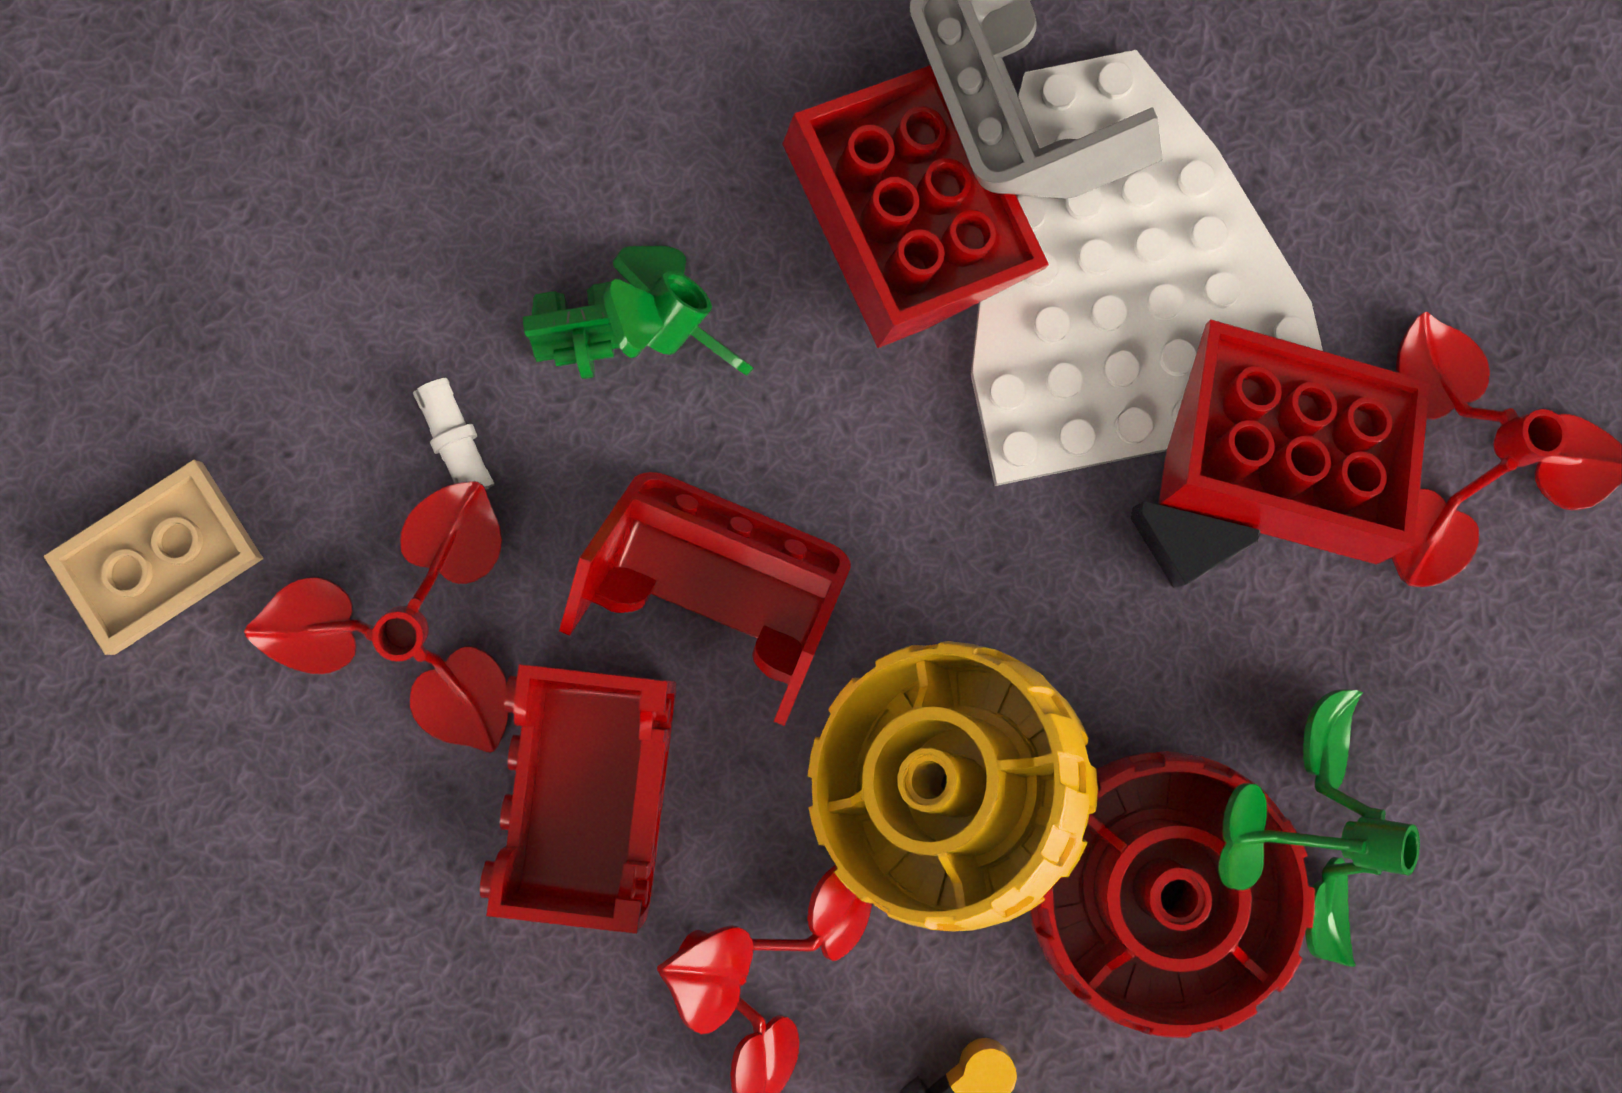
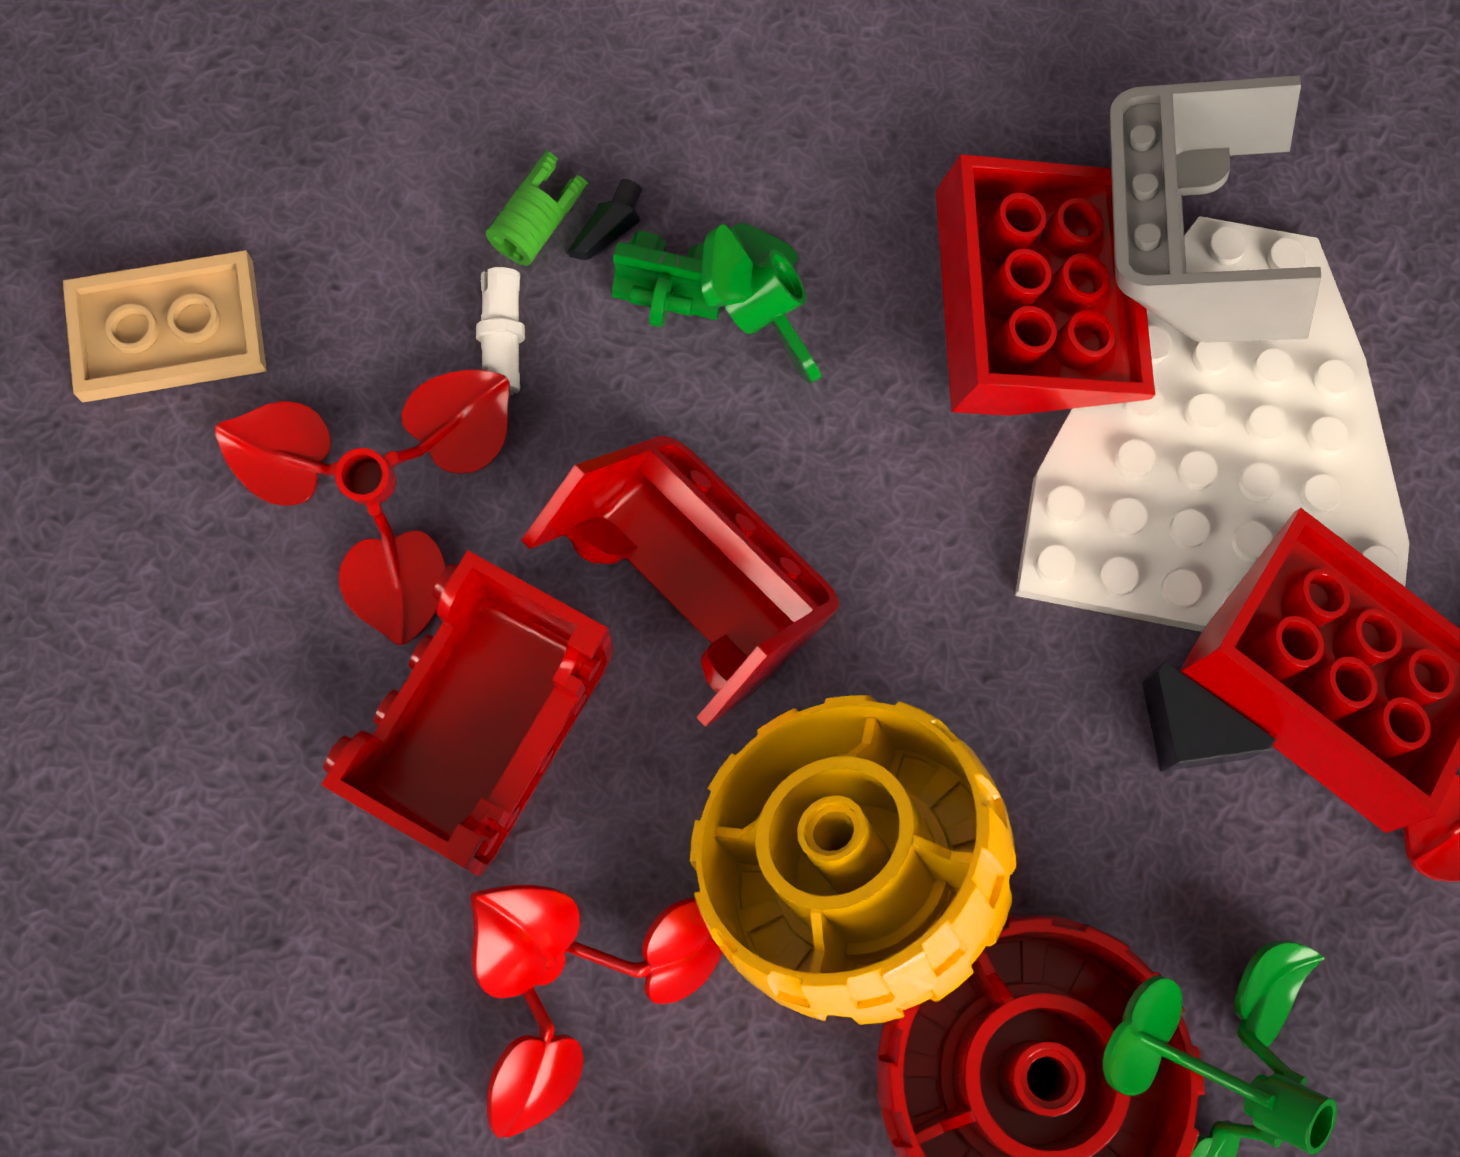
camera: 20 degrees right, 10 degrees down
(433, 320) = (532, 214): none -> bright green hinge
(503, 294) = (608, 222): none -> black bar

